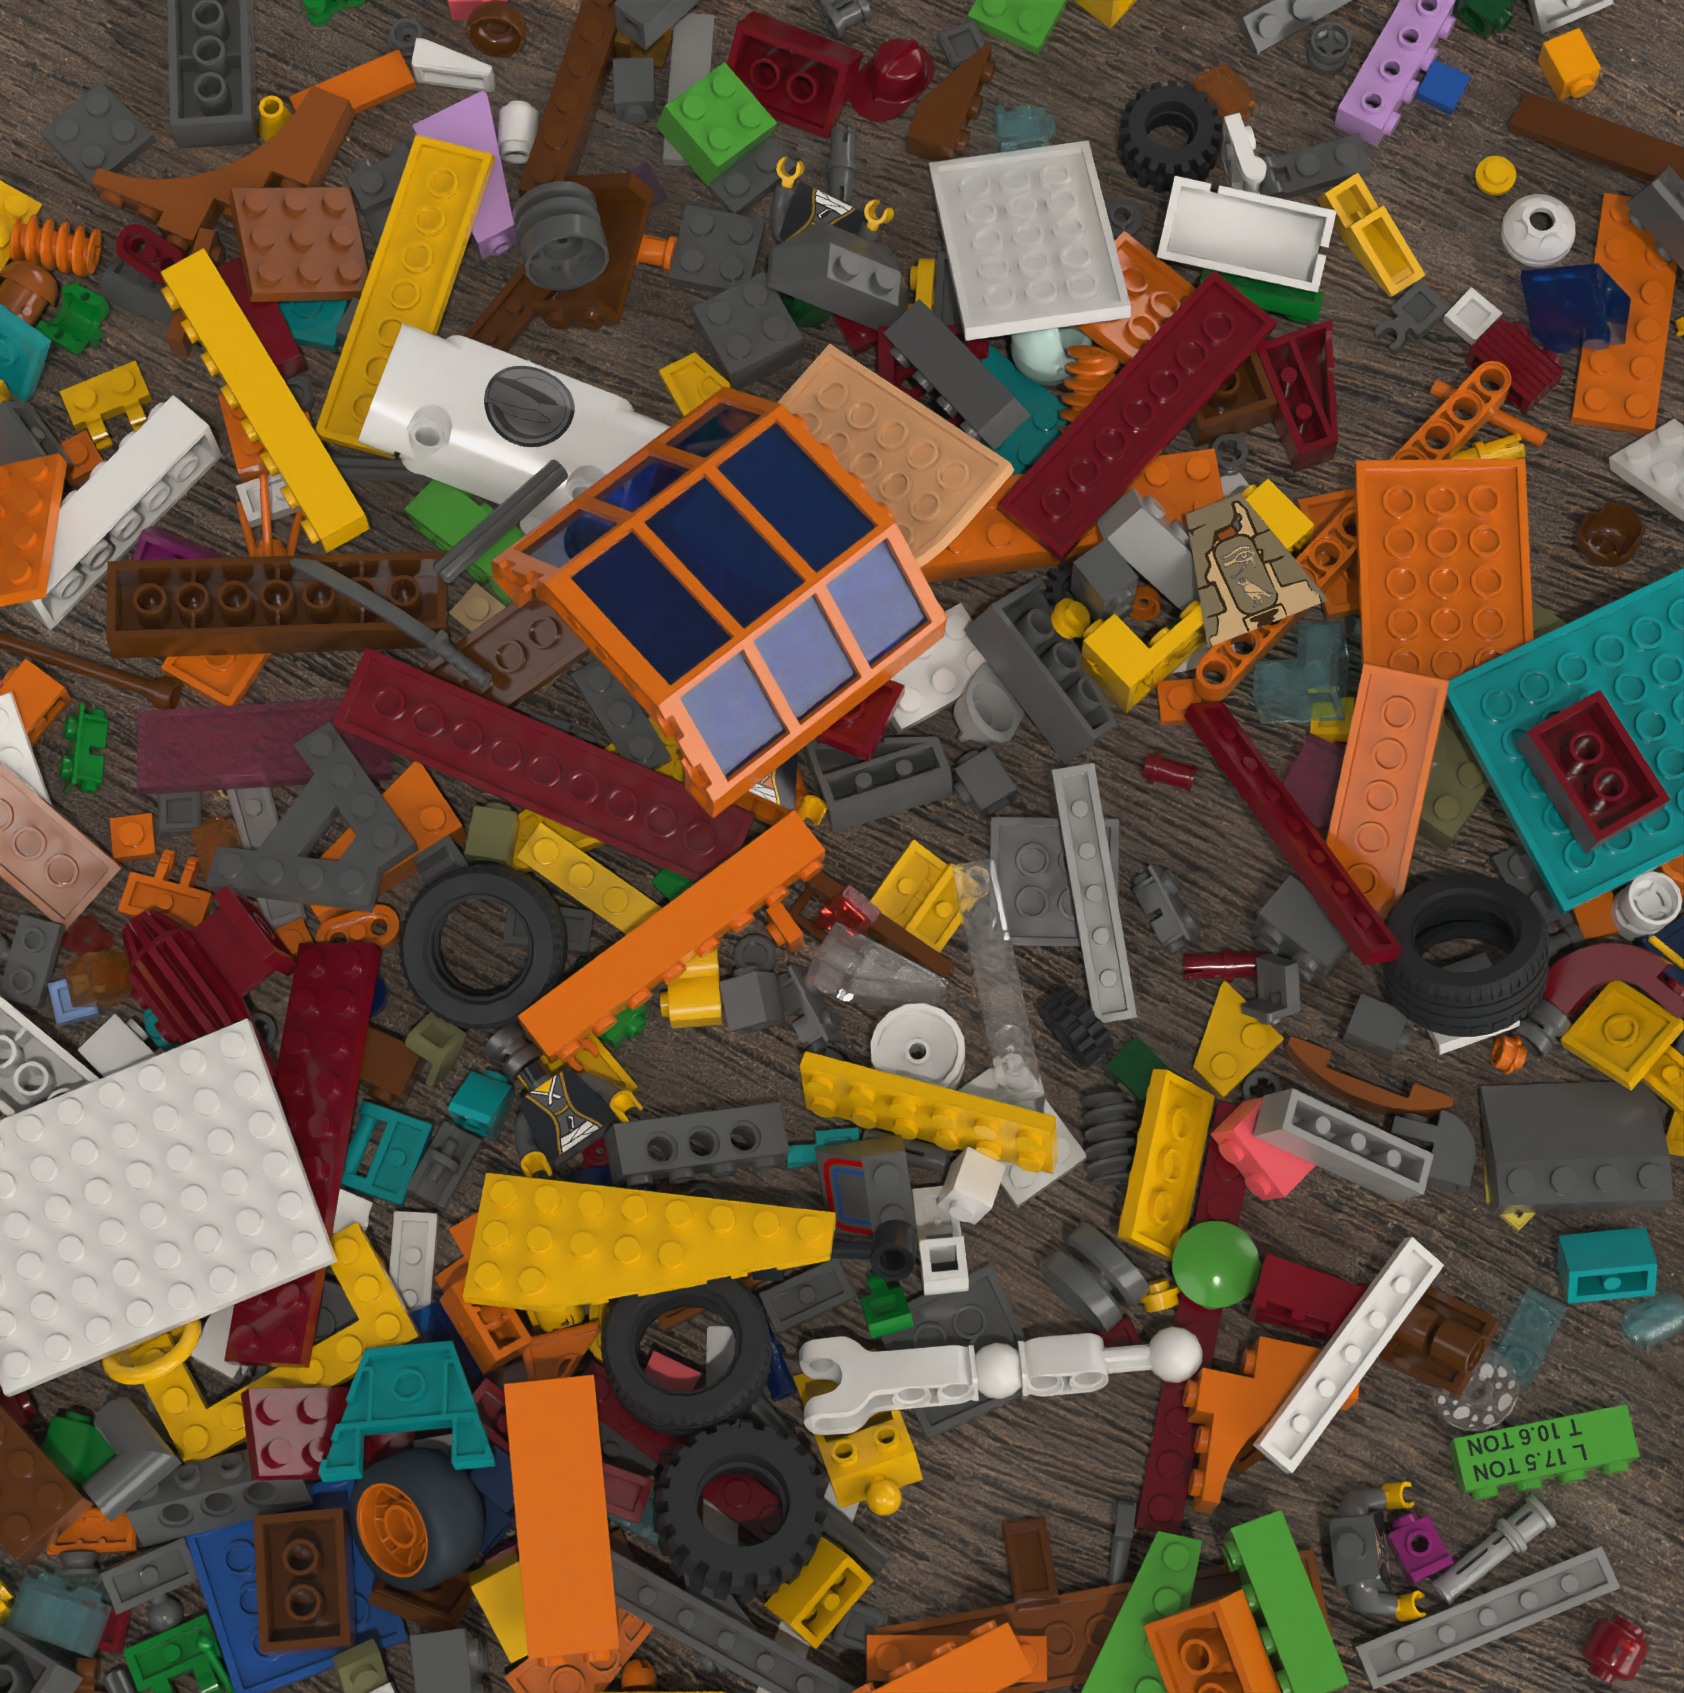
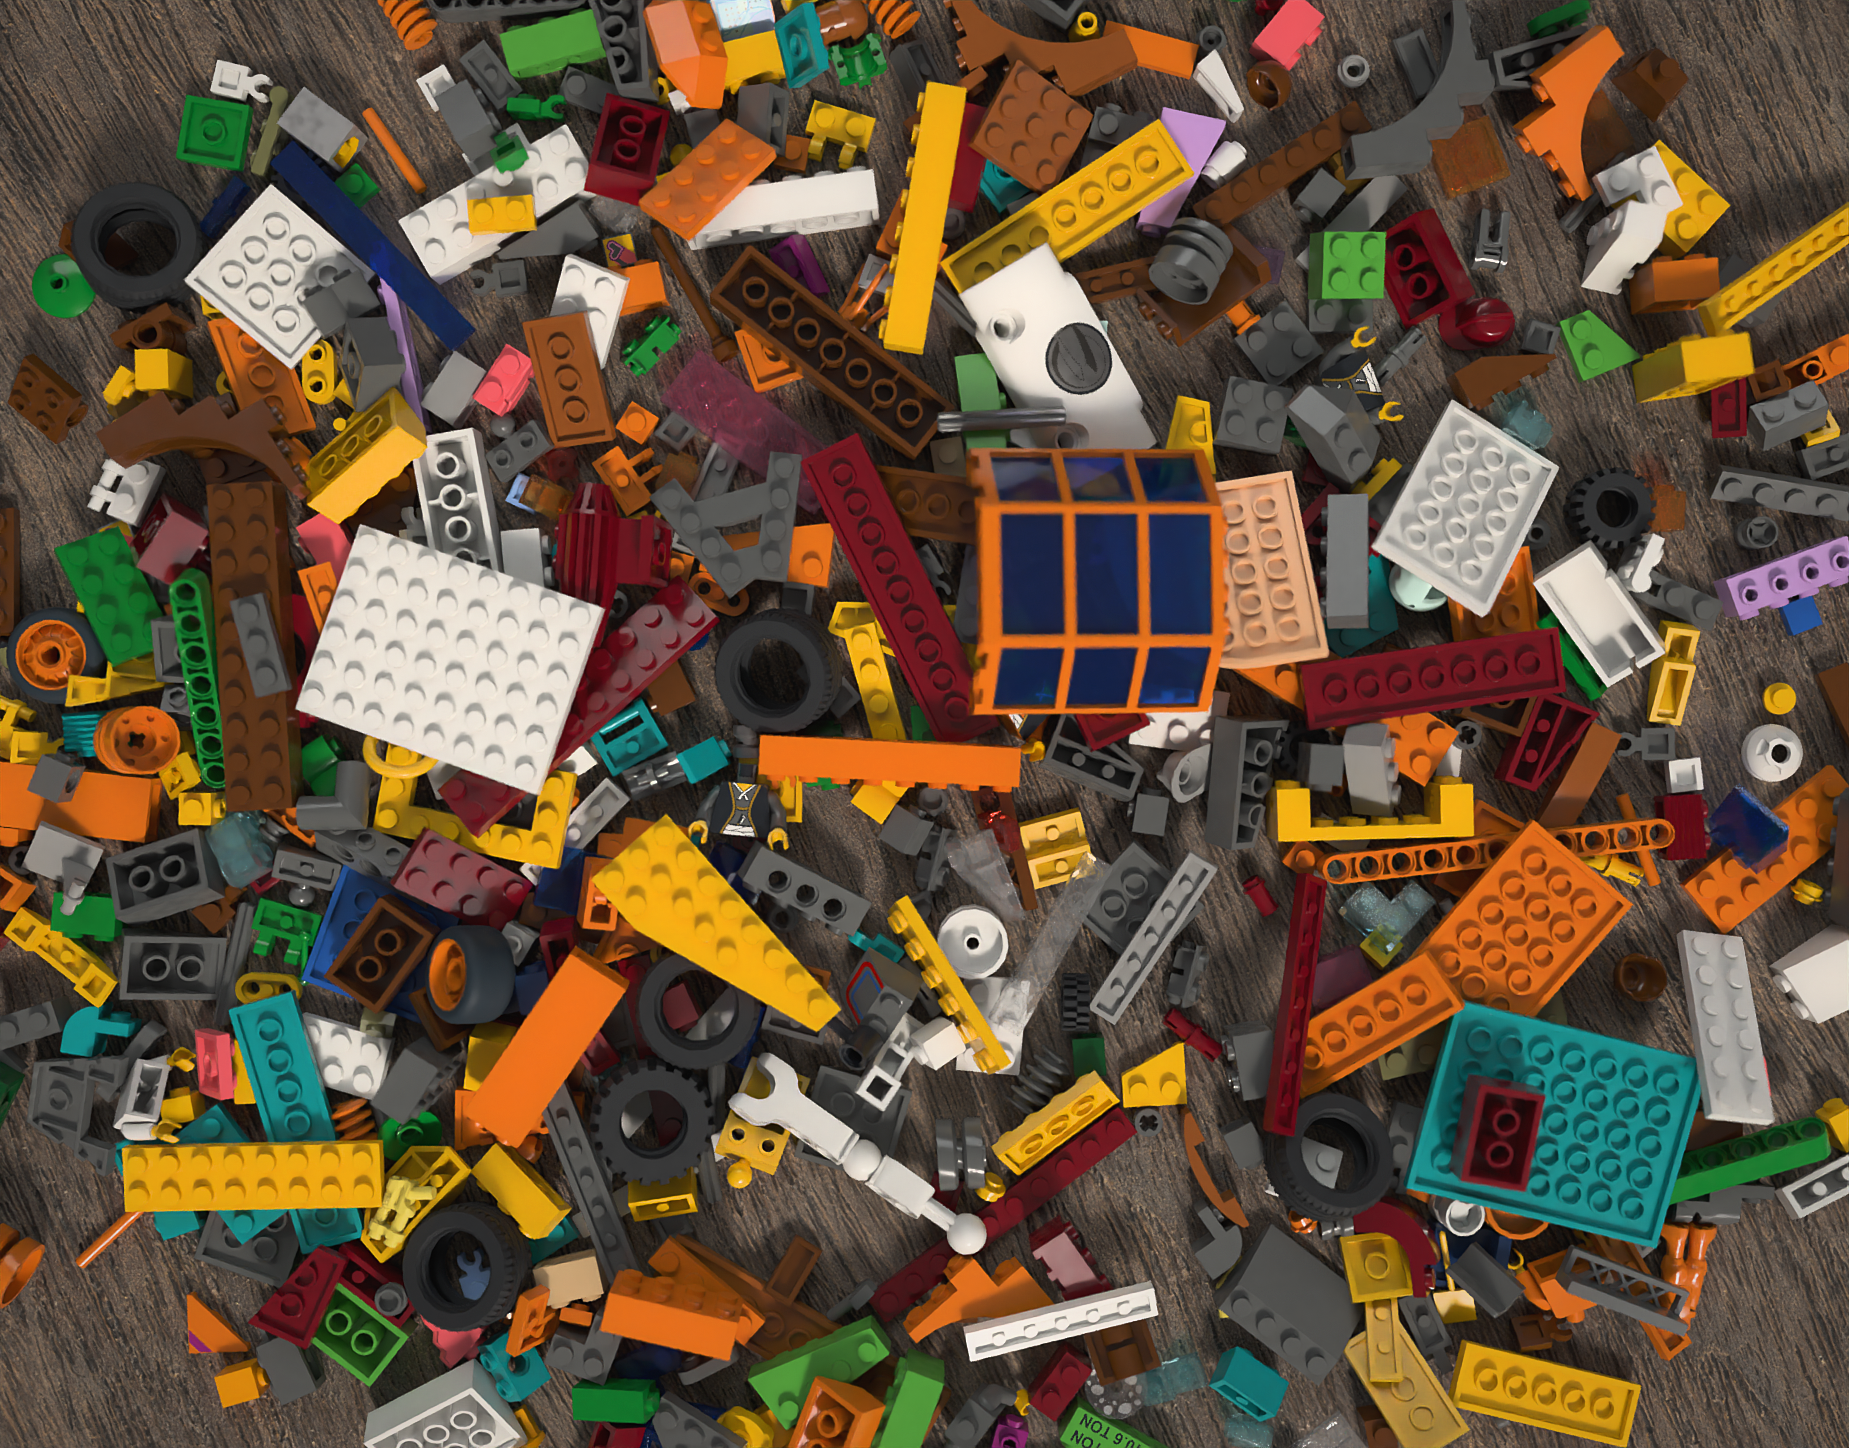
camera: 35 degrees right, 15 degrees up
(155, 256) = (940, 60): dark red plate -> none
(405, 1392) = (519, 900): teal wing -> none
(435, 643) = (901, 463): dark grey sword -> none
(438, 1044) = (705, 703): olive panel -> none
(492, 835) = (839, 606): olive brick -> none
(783, 928) = (960, 802): orange plate -> none
(885, 1309) = (829, 1071): green plate -> none
(1070, 618) = (1282, 764): yellow plate -> none
(1093, 373) = (1419, 629): orange piece -> none
(1215, 1264) = (1034, 1200): bright green dish -> none
(1244, 571) = (1407, 828): sticker -> none
(1266, 1168) = (1117, 1161): coral brick -> none
(1277, 990) = (1205, 1078): dark grey bracket -> none
(1343, 1144) = (1162, 1203): light grey brick -> none
(1370, 393) = (1577, 778): none -> dark orange slope
(1411, 1434) = (1059, 1380): none -> dark red brick

